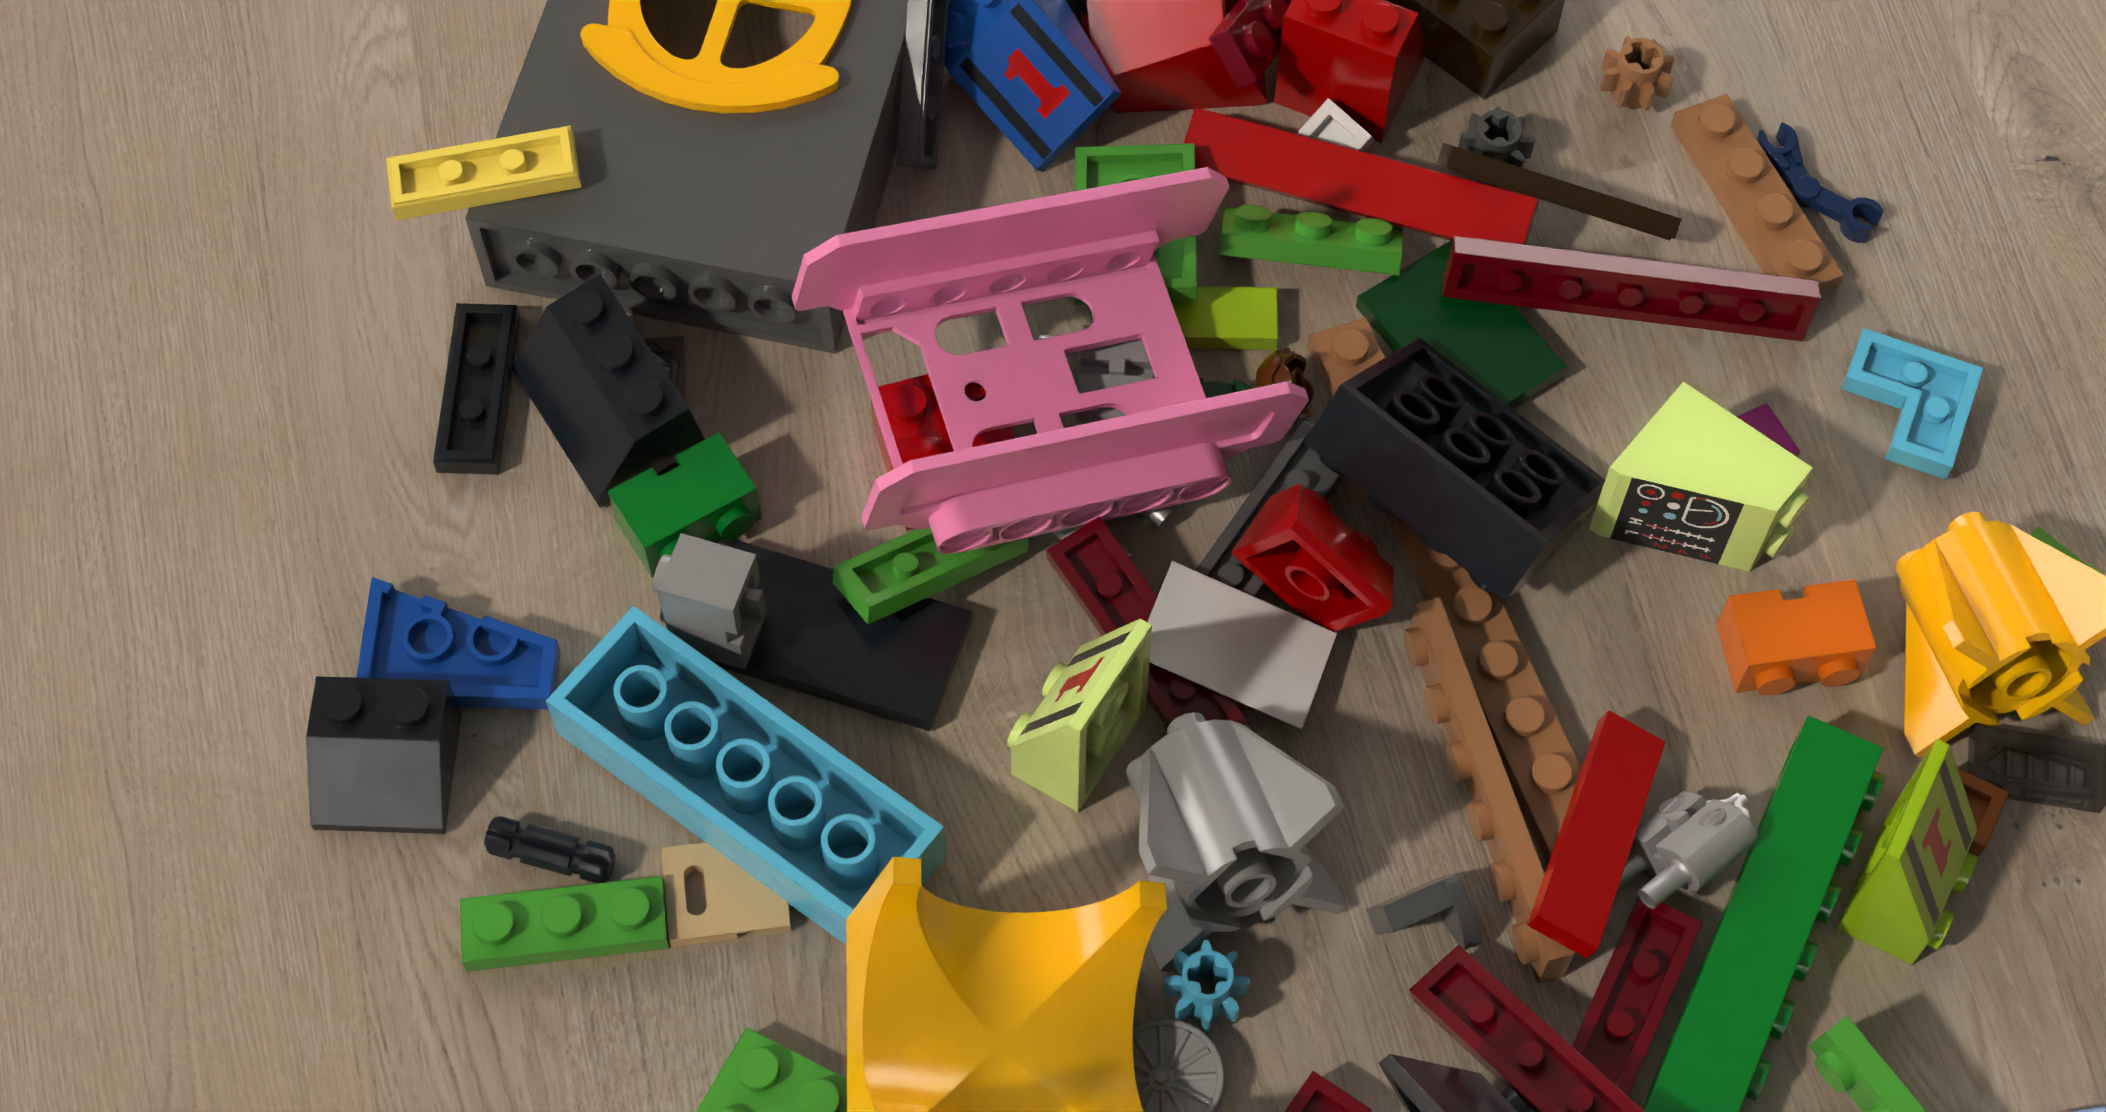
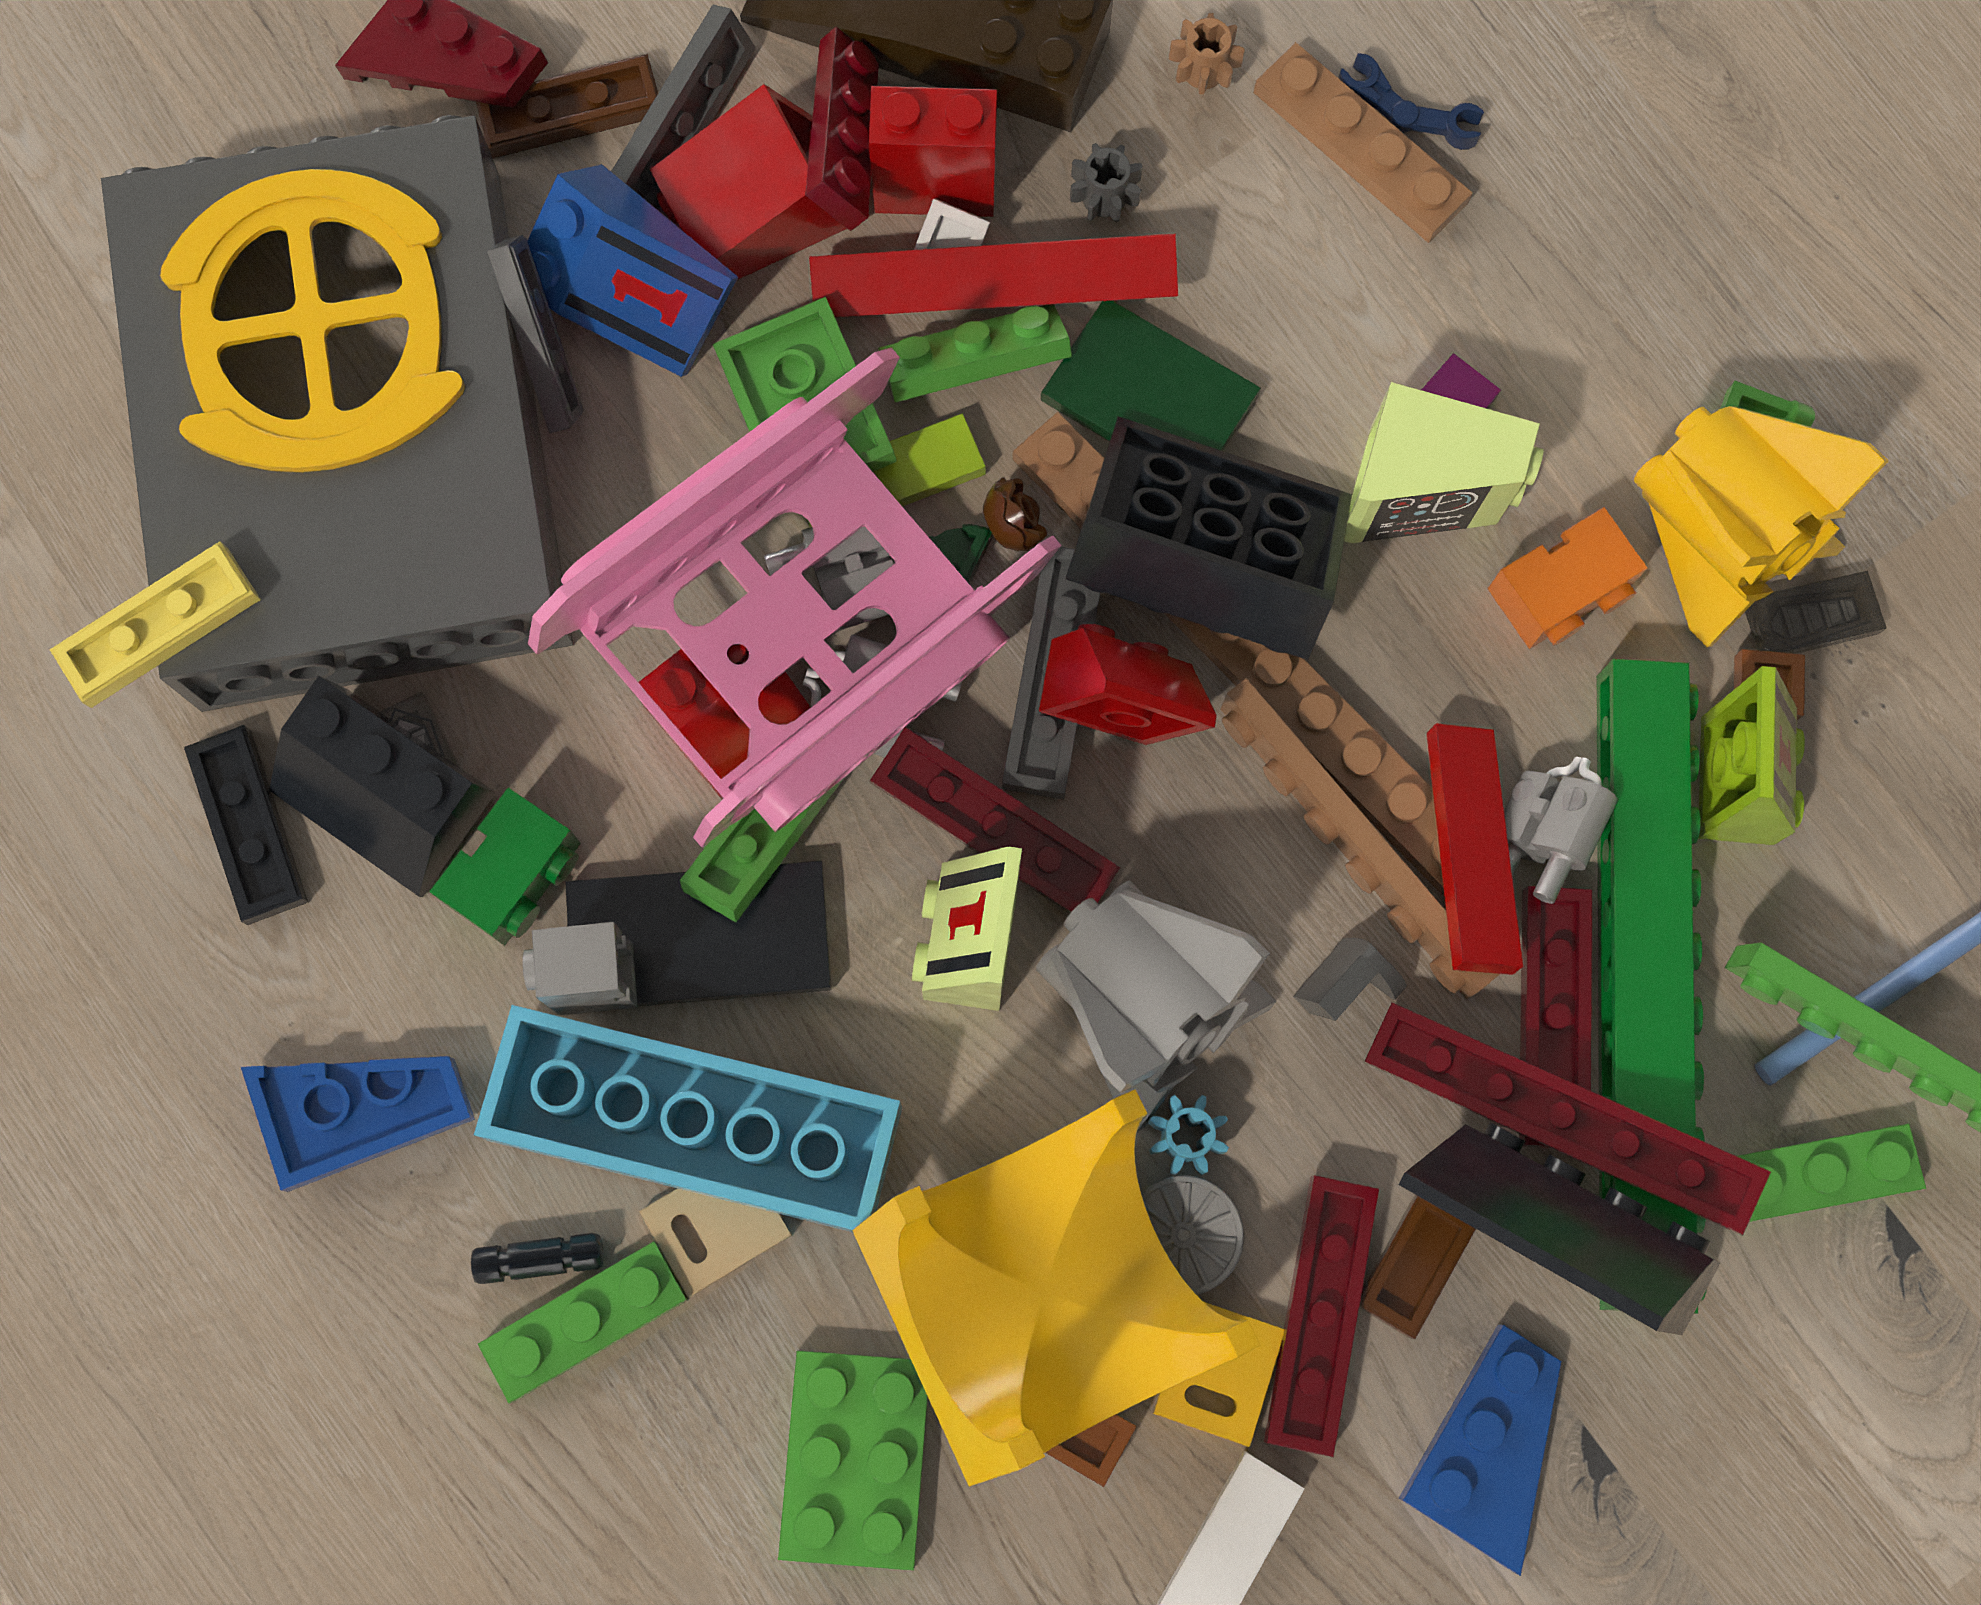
camera: 25 degrees left, 15 degrees up
(381, 754) = (336, 1239): black slope -> none
(1238, 644) = (1079, 797): white sticker -> none
(1558, 192) = (1186, 214): dark brown tile -> none
(1630, 288) = (1289, 289): dark red plate -> none
(1929, 390) = (1590, 280): medium azure plate -> none

